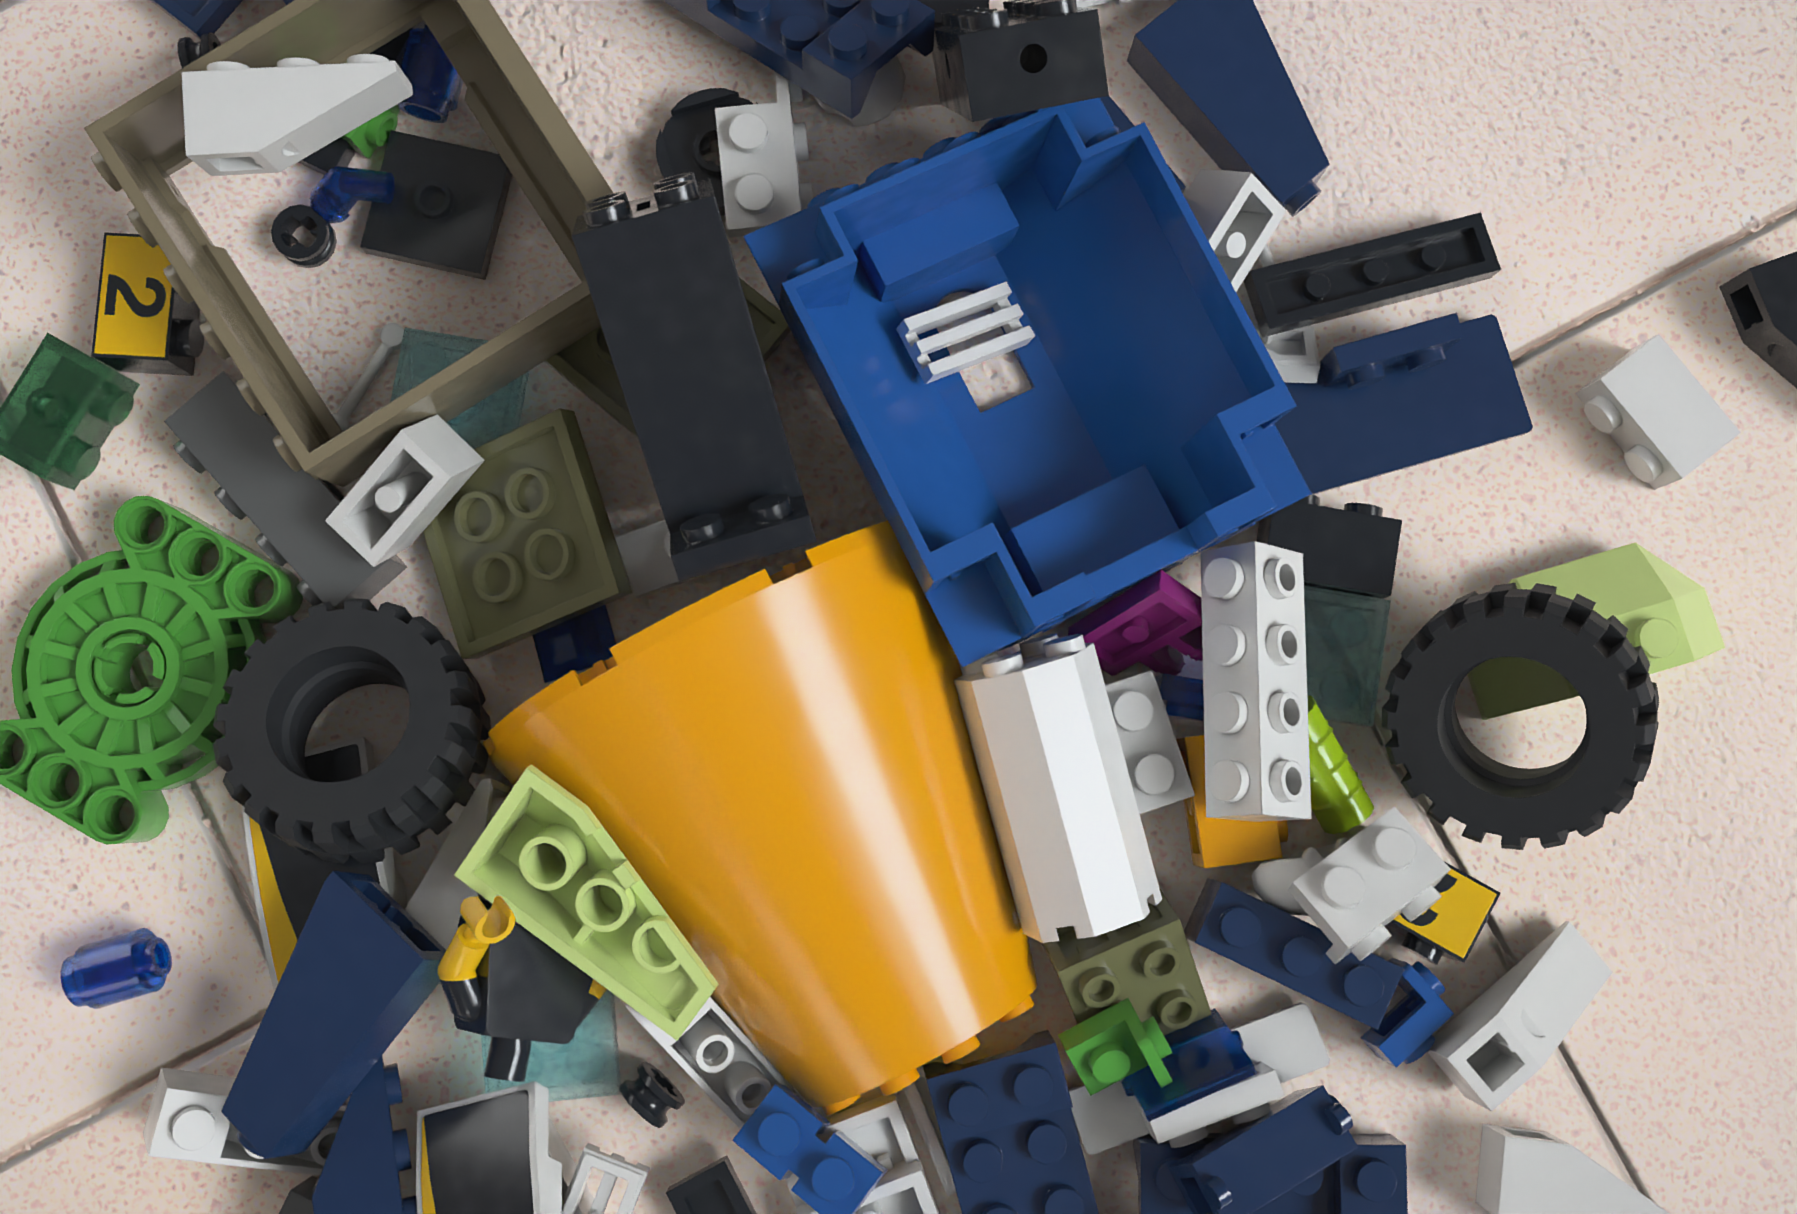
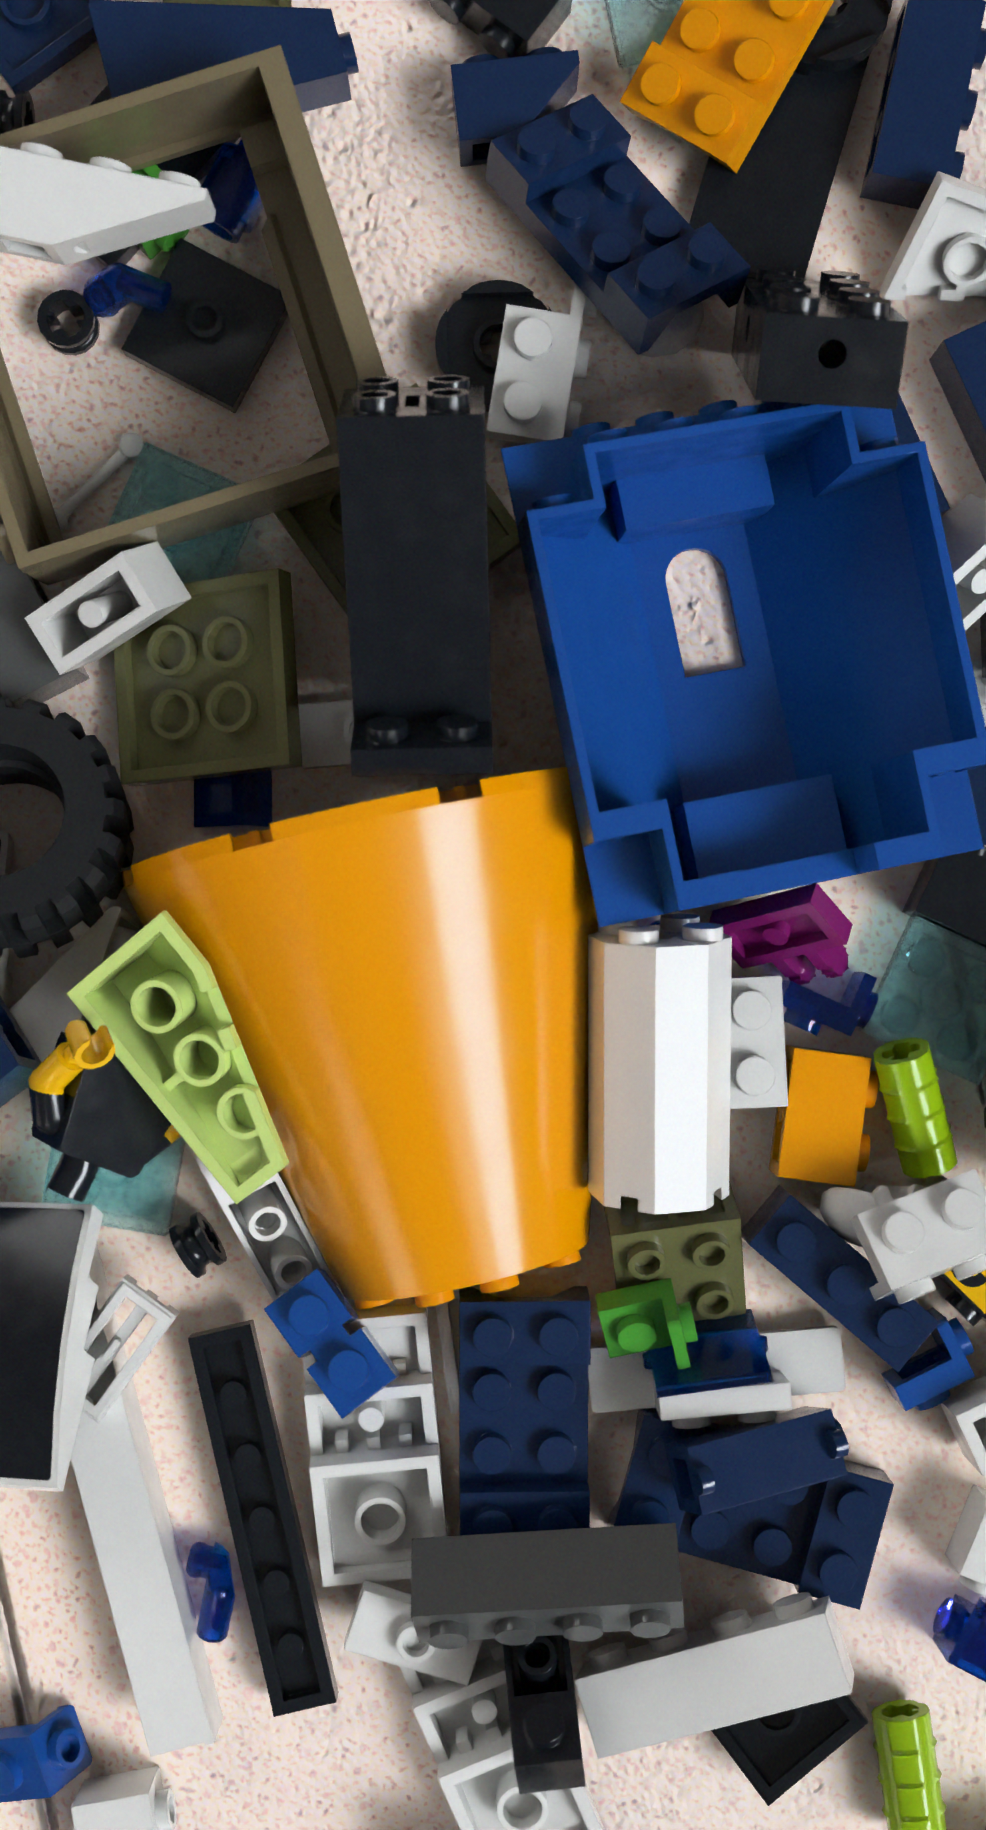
camera: 15 degrees right, 5 degrees up
(1004, 315) = (736, 588): white tile -> none
(1255, 684) = (876, 1015): white brick -> none

